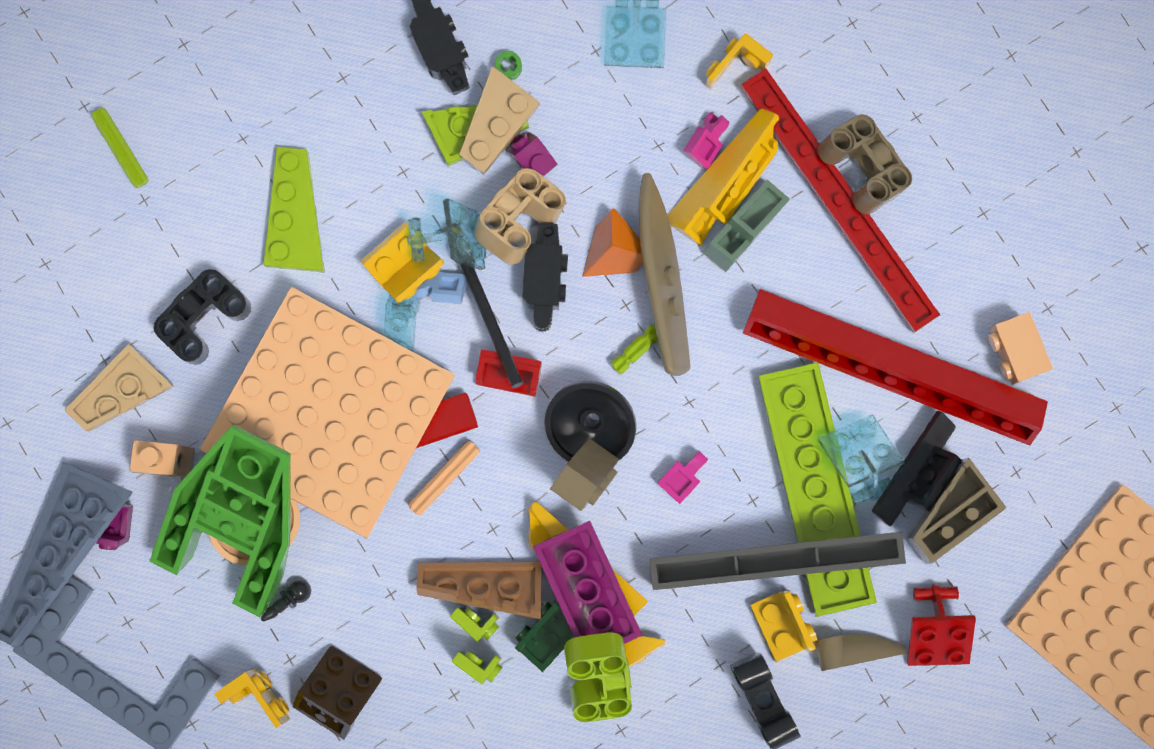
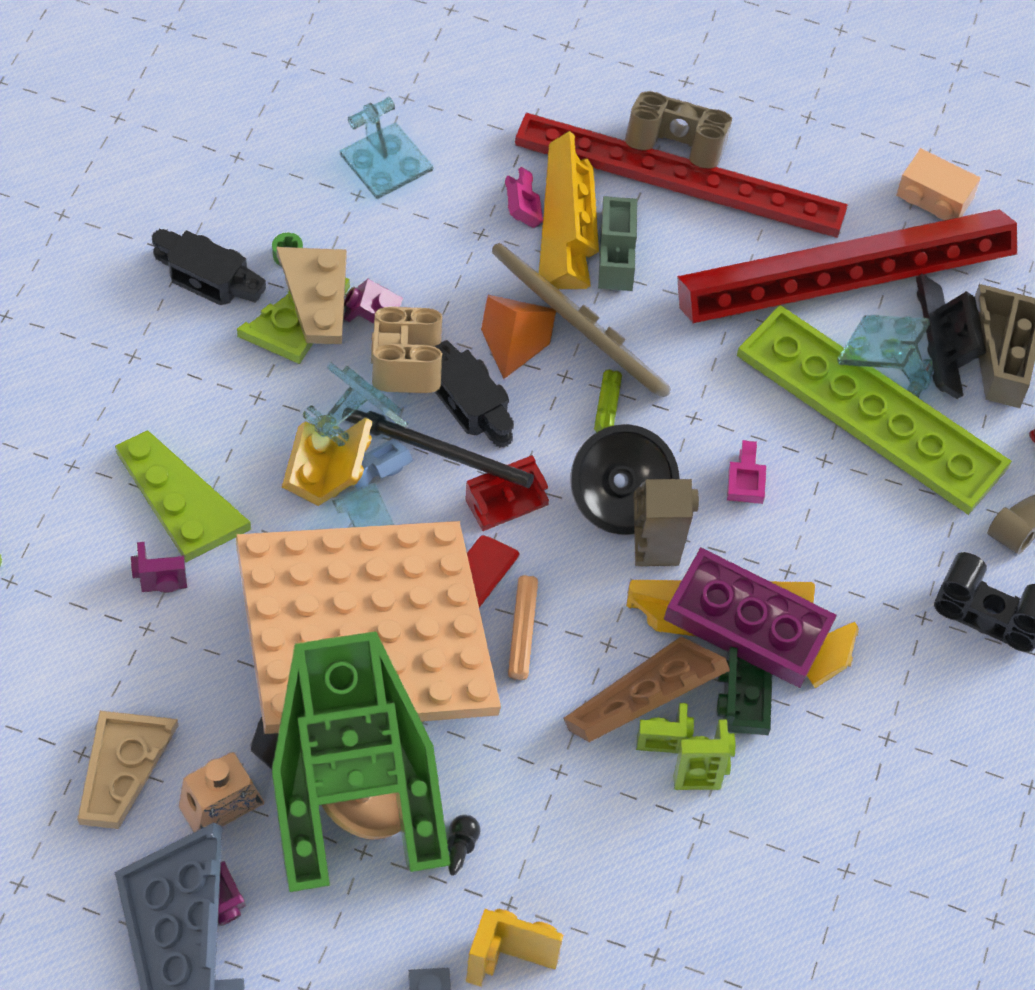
camera: 45 degrees left, 25 degrees down
(191, 307) = (141, 632): black beam -> none
(237, 272) = (160, 573): none -> magenta bracket
(336, 692) = (587, 897): dark brown bracket -> none
(604, 677) = (830, 656): lime beam -> none
(753, 55) = (499, 108): yellow bracket -> none
(777, 560) = (895, 474): dark grey brick -> none
(783, 625) = (950, 525): yellow bracket -> none

